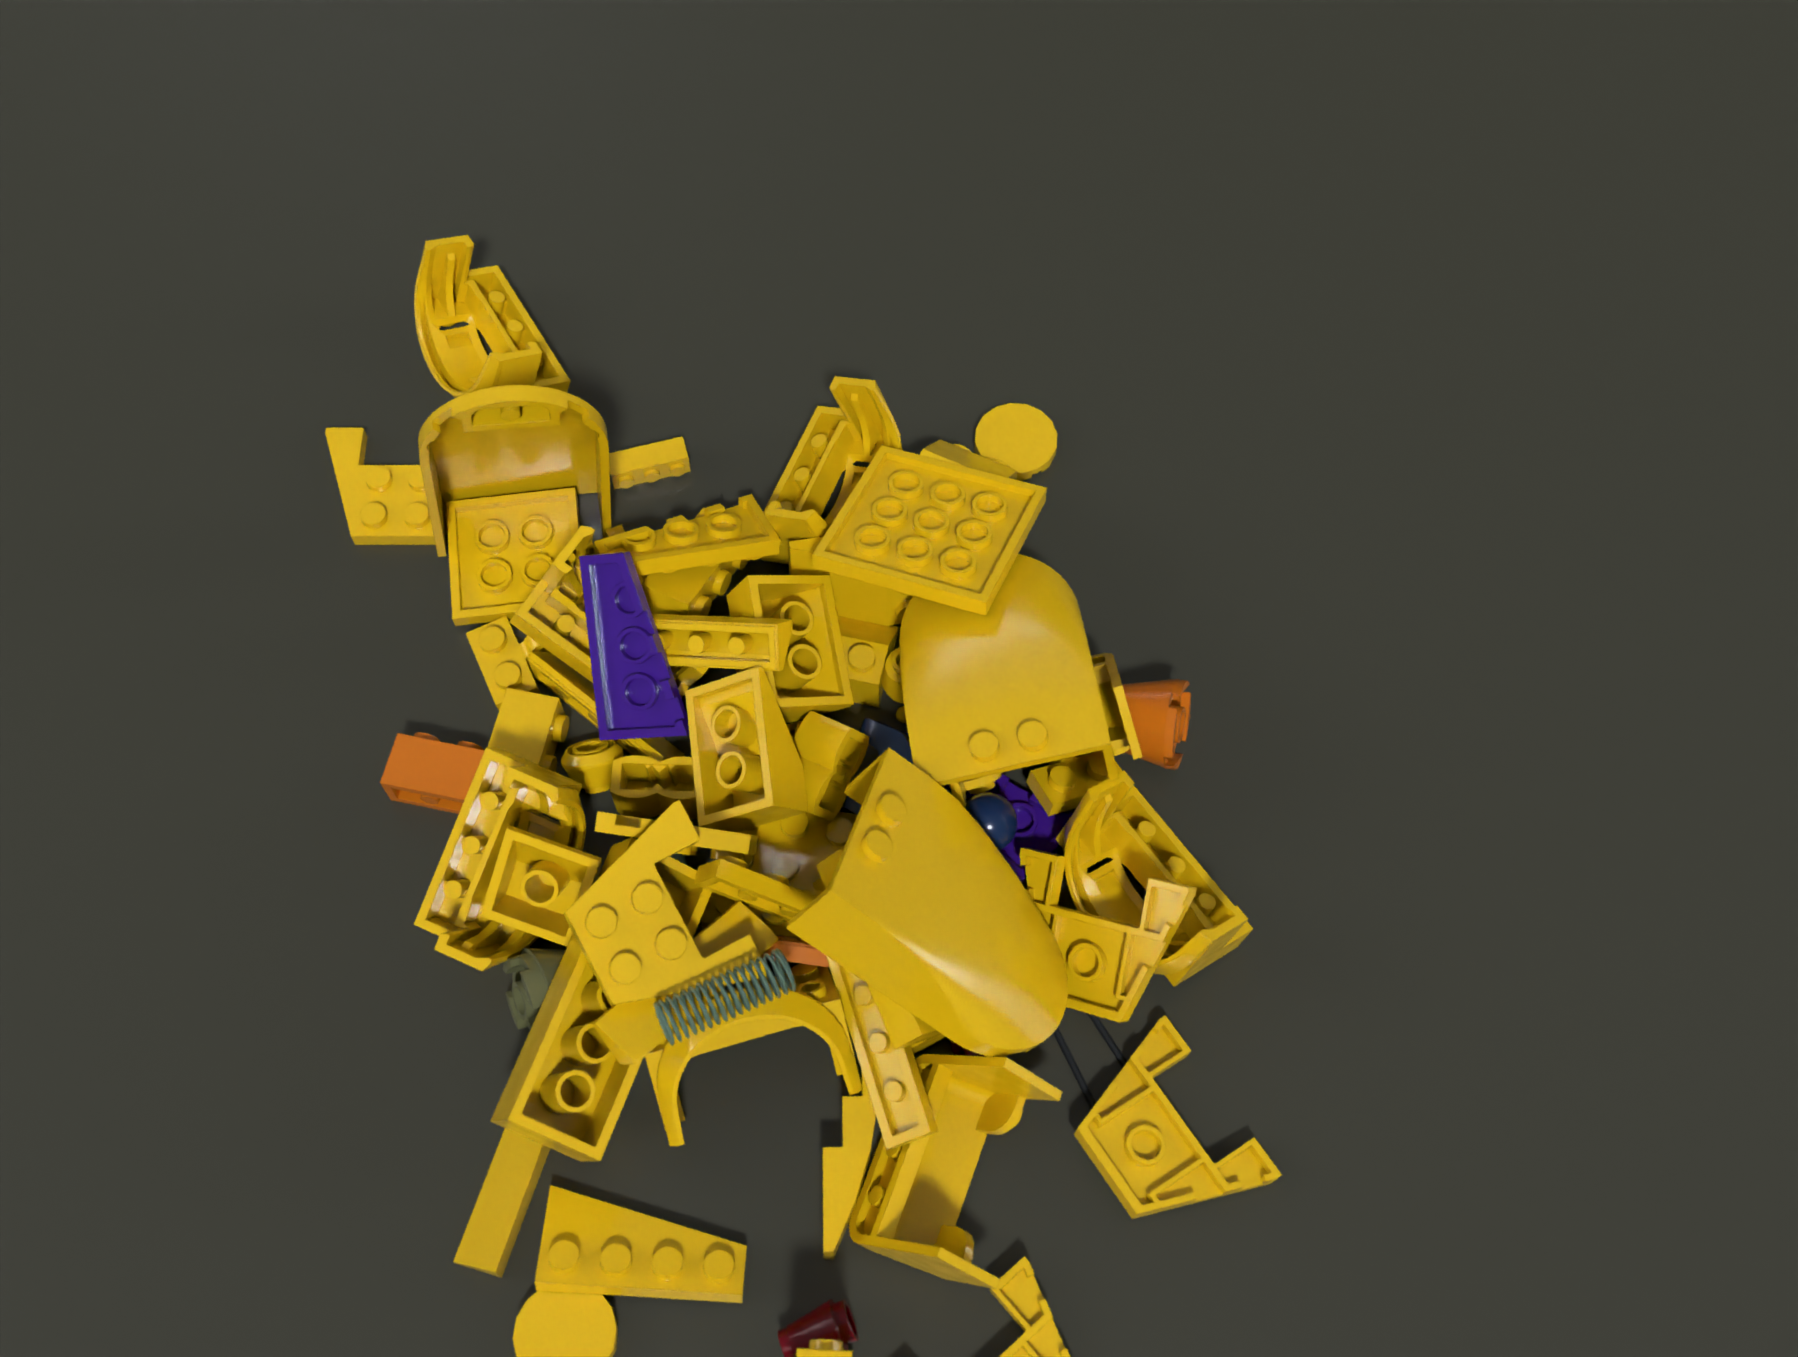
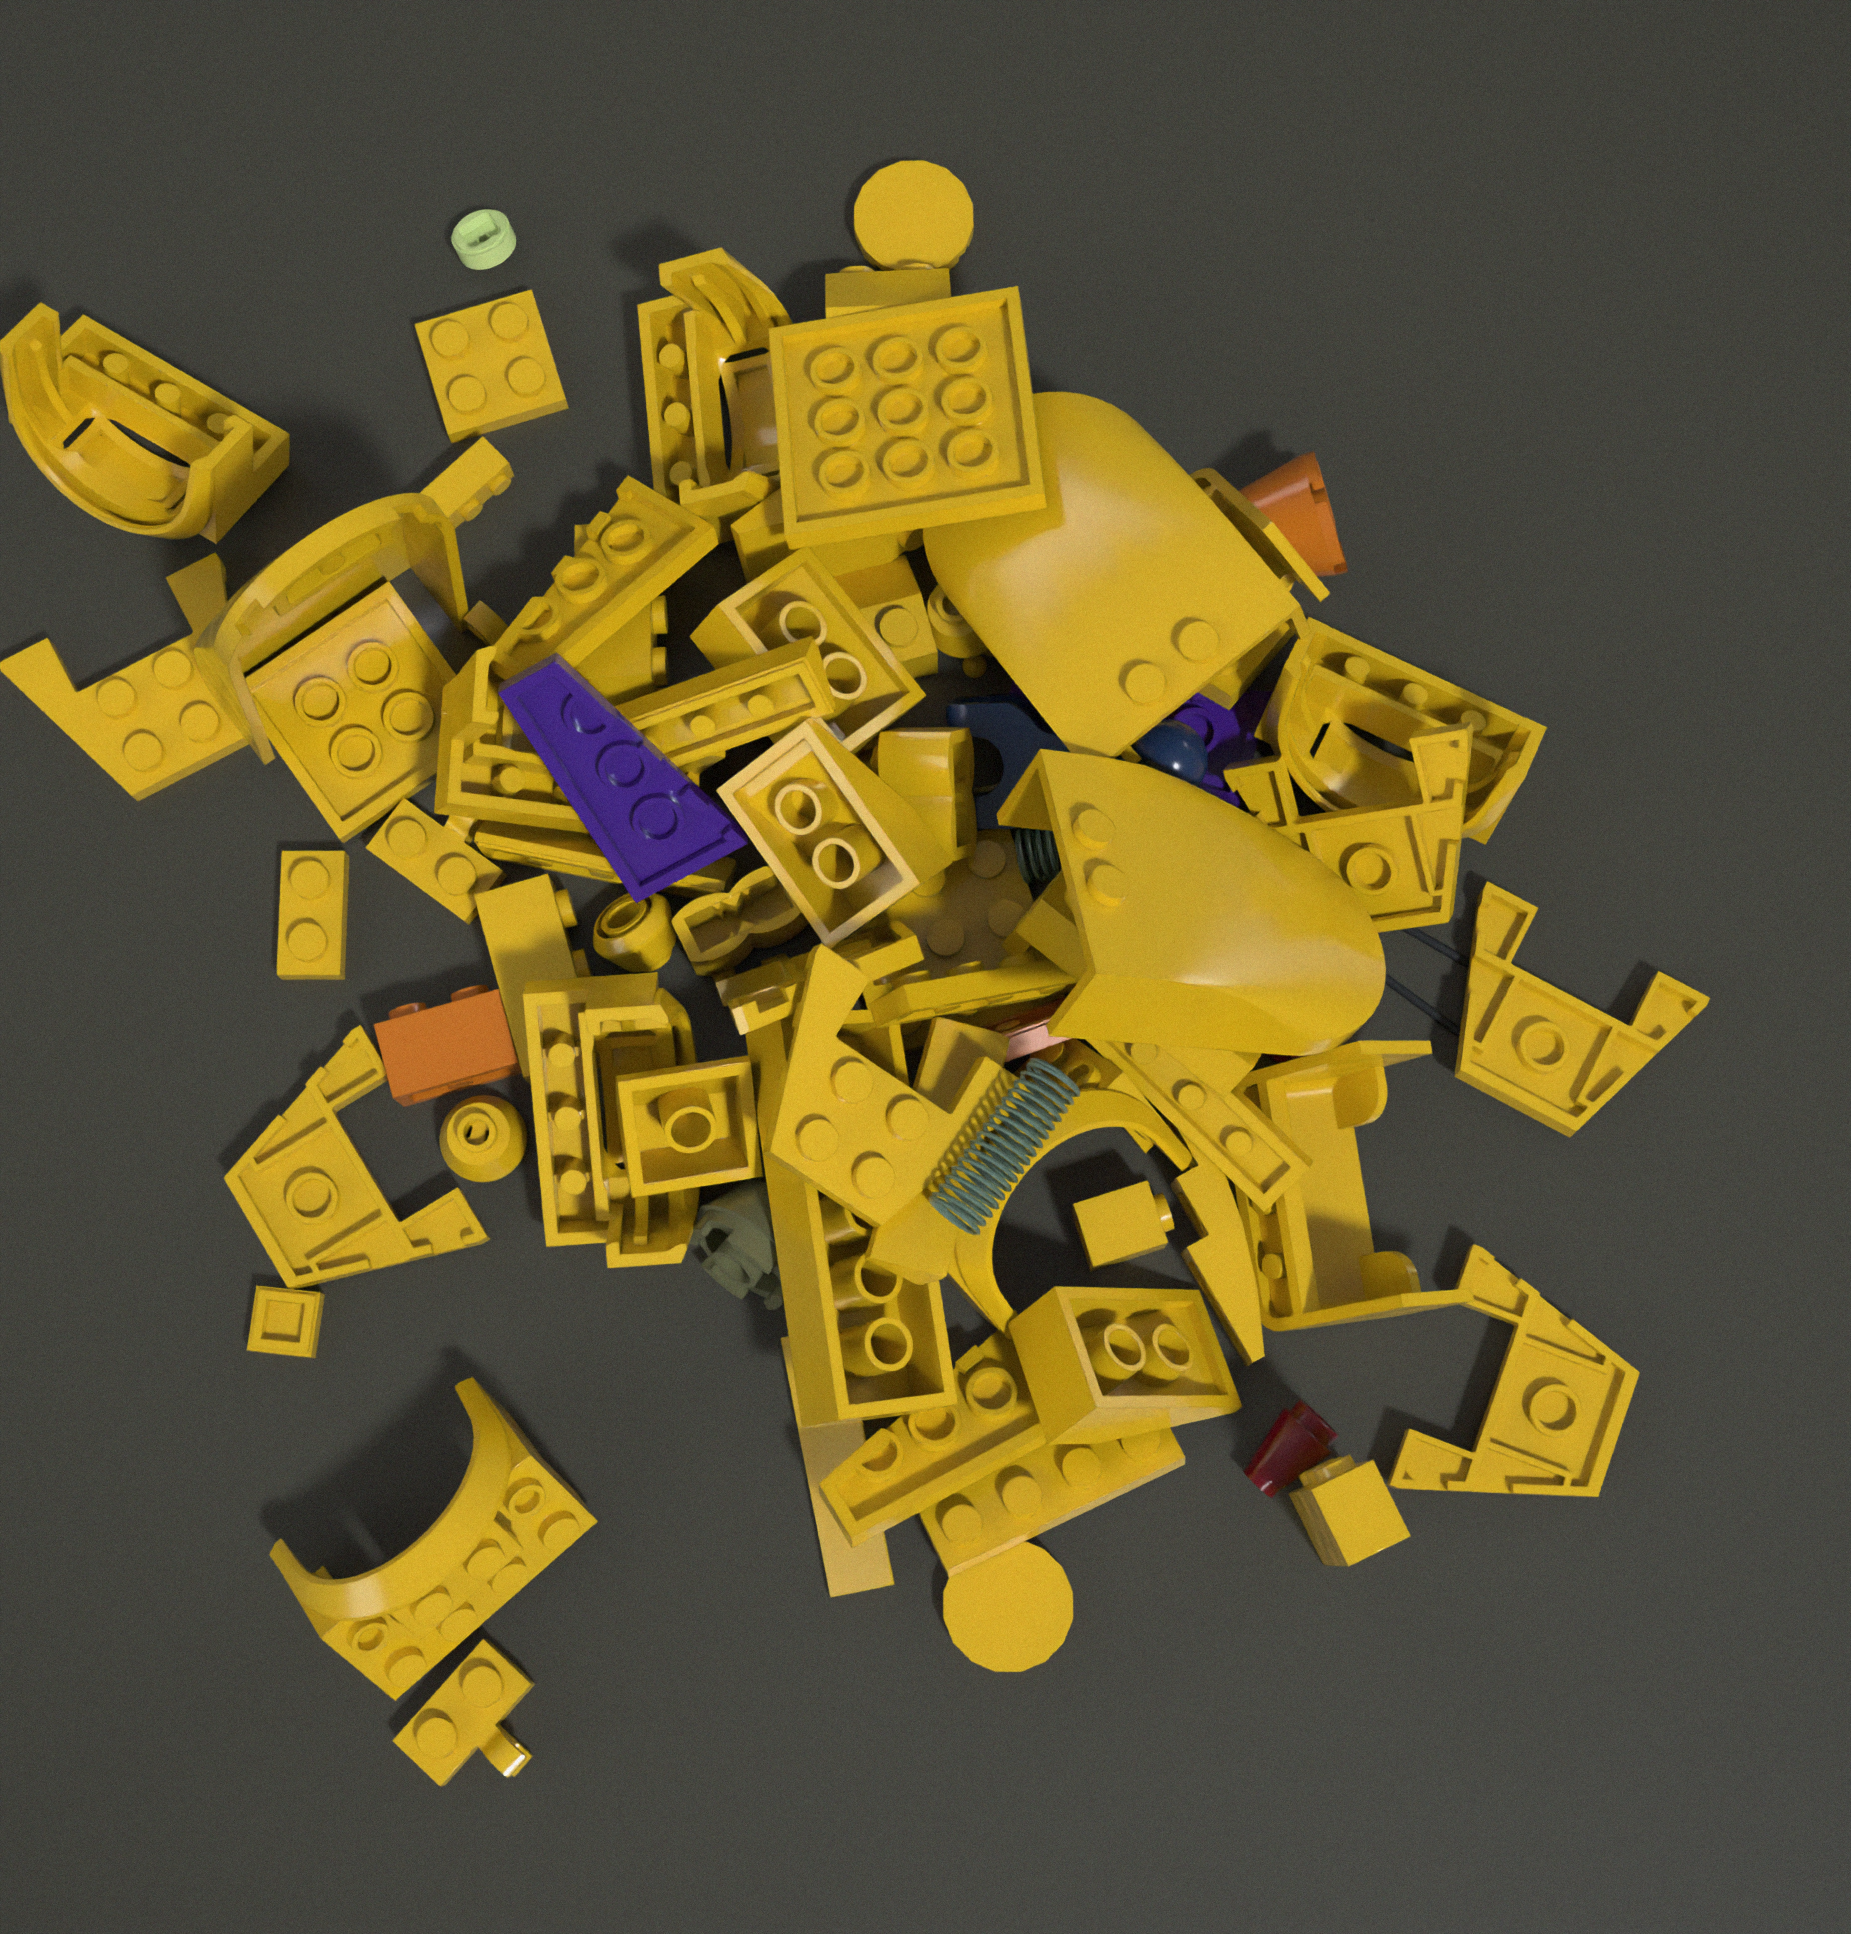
camera: 25 degrees left, 15 degrees up
(171, 1208) = (468, 1717): none -> yellow plate
(220, 1094) = (479, 1553): none -> yellow piece
(232, 891) = (285, 1322): none -> yellow tile
(300, 825) = (317, 1196): none -> yellow wing
(410, 658) = (313, 915): none -> yellow plate
(420, 841) = (475, 1156): none -> yellow cone
(623, 1192) = (938, 1450): none -> yellow wing
(714, 404) = (491, 366): none -> yellow plate
(734, 1201) = (1121, 1362): none -> yellow slope
(752, 334) = (483, 239): none -> yellowish green tile
(791, 1112) = (1122, 1225): none -> yellow brick

